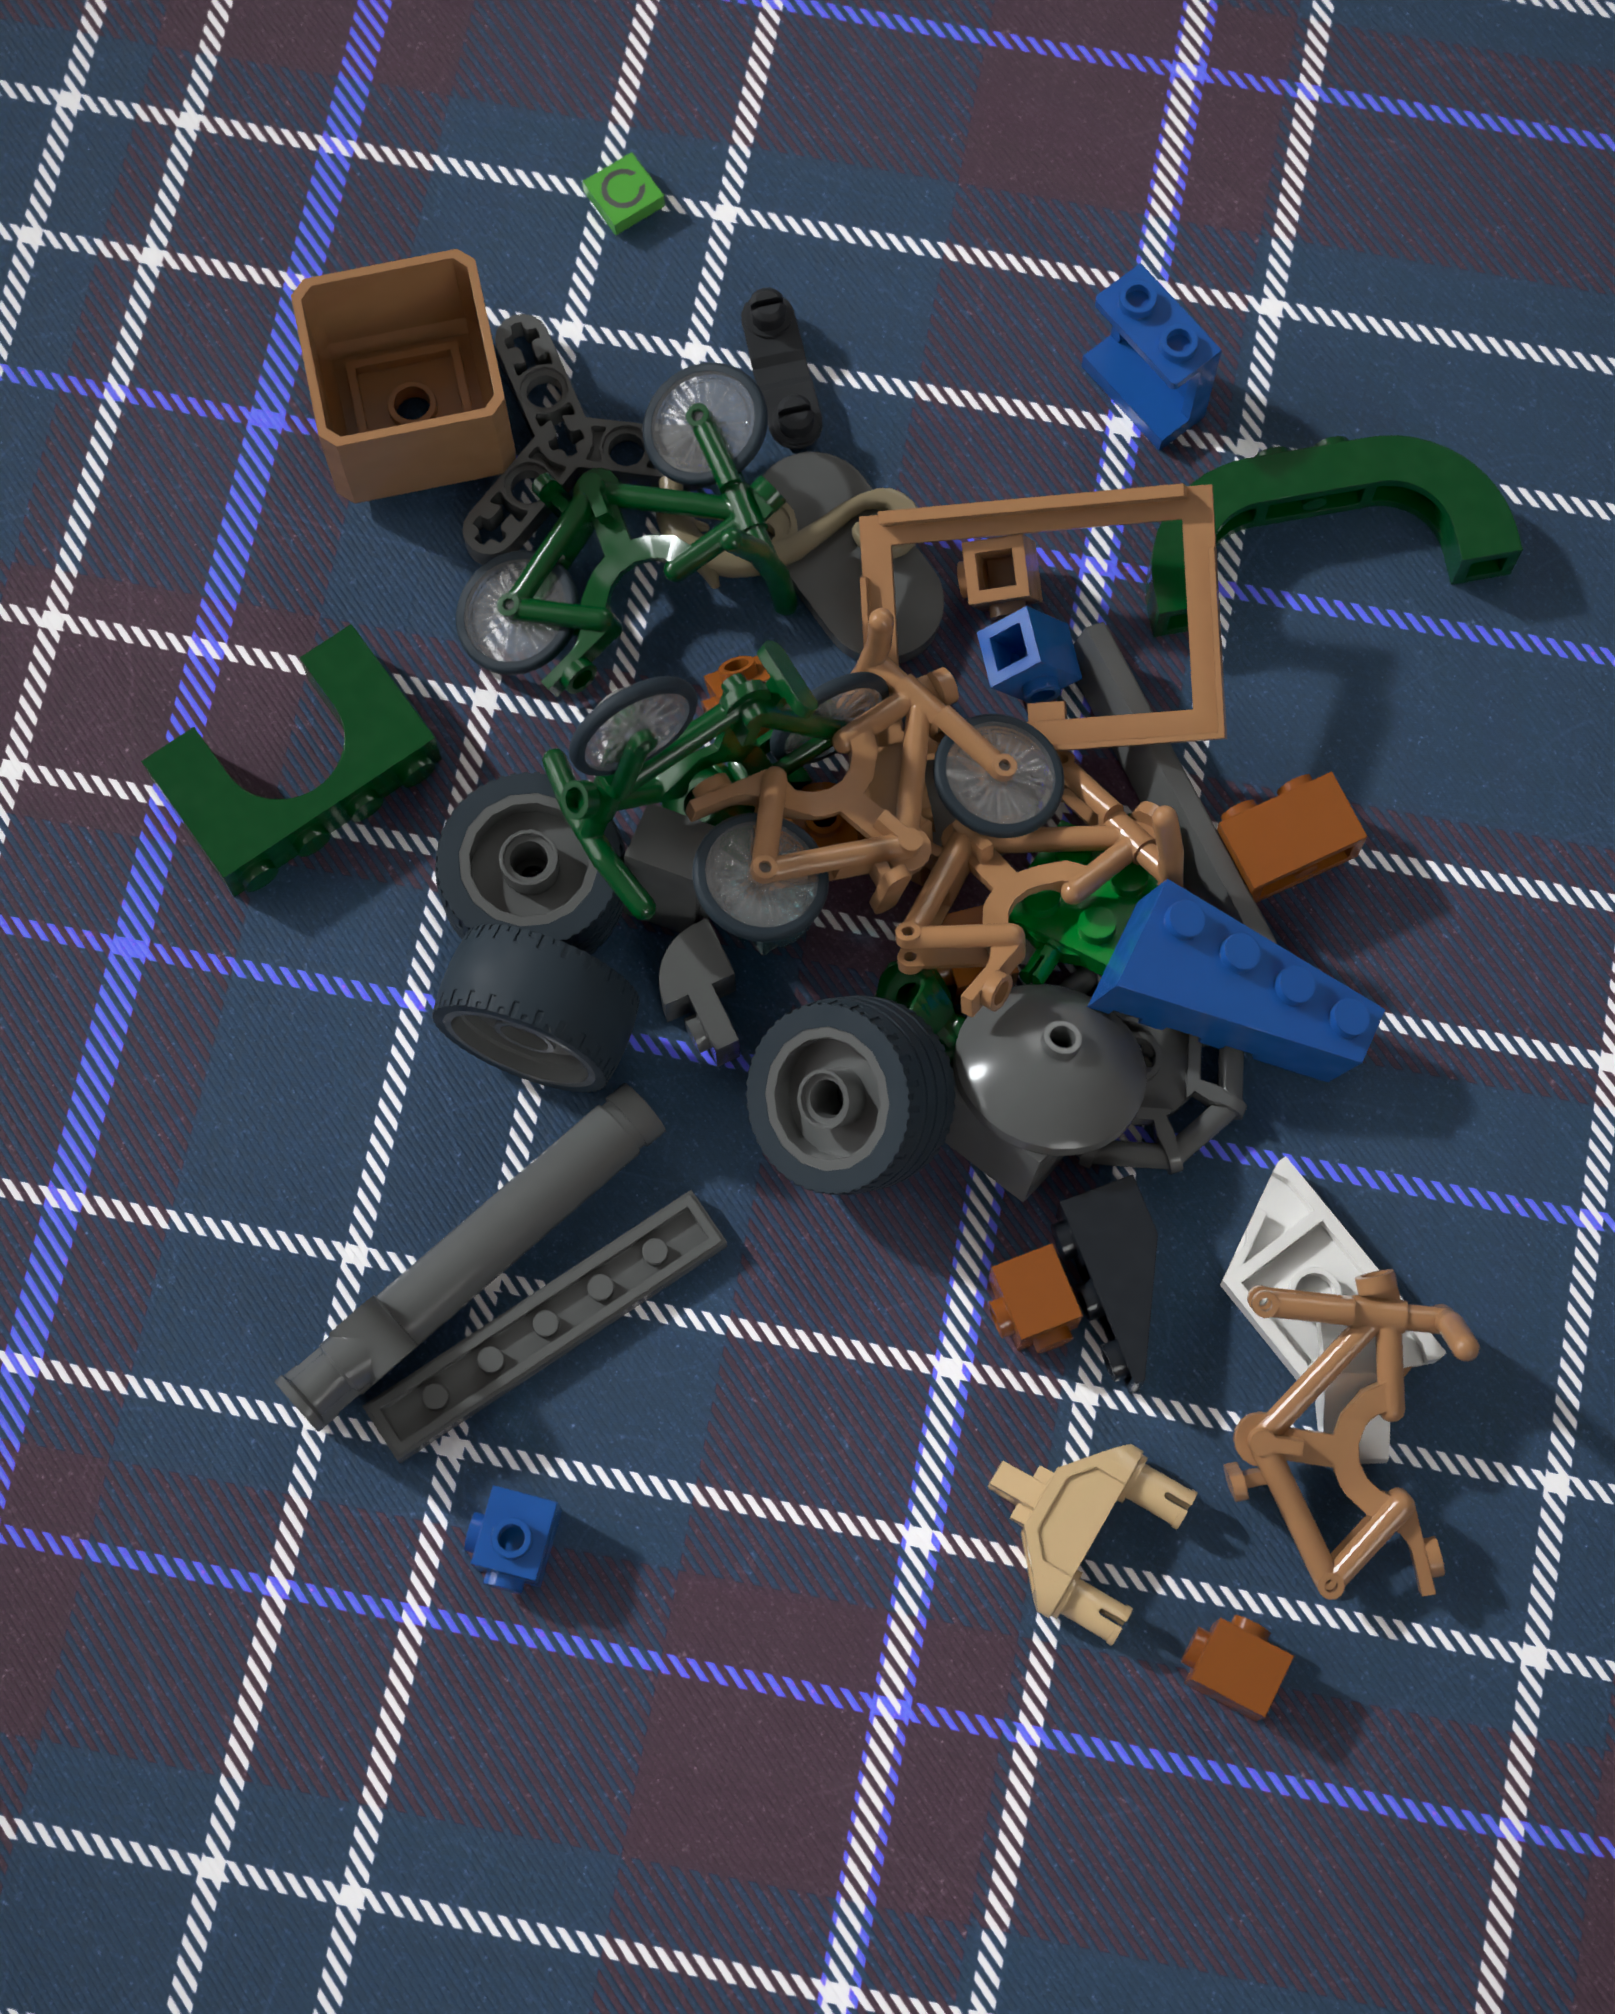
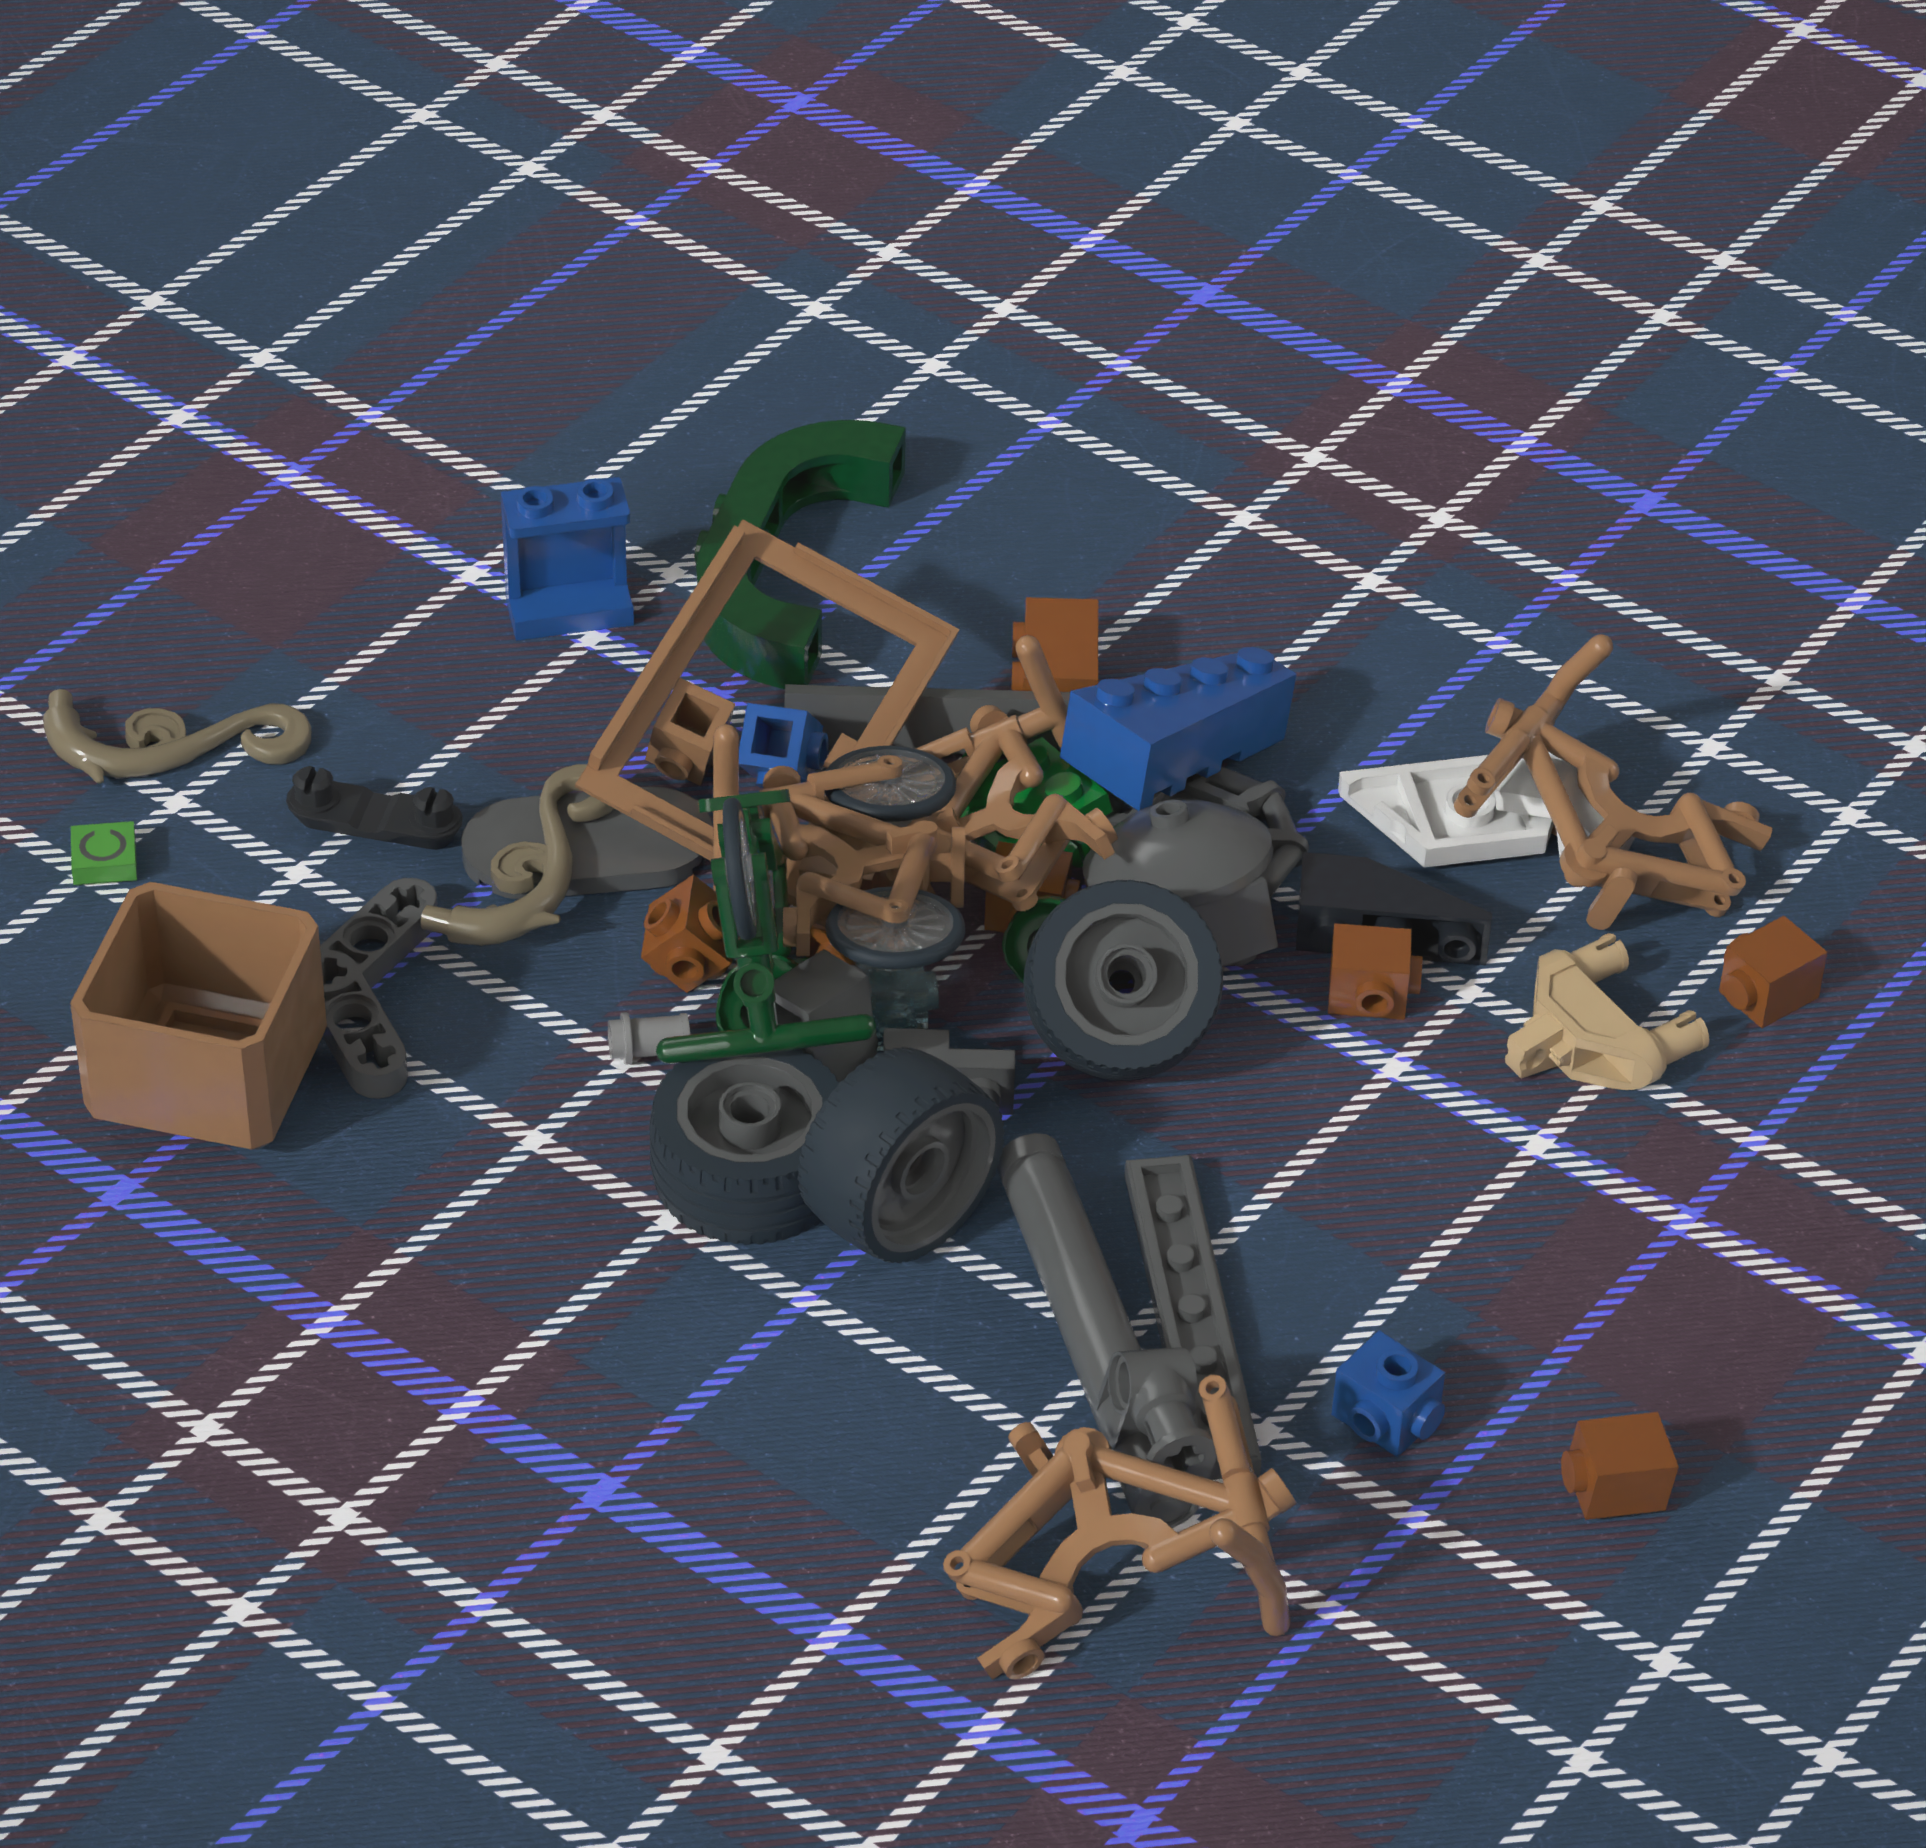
camera: 65 degrees left, 30 degrees down
(256, 835) = (544, 1343): dark green arch -> none
(256, 1330) = (1080, 1472): none -> medium nougat piece
(514, 1774) = (1620, 1465): none -> dark orange brick
(697, 433) = (419, 838): piece -> none
(782, 177) = (174, 747): none -> dark tan plant

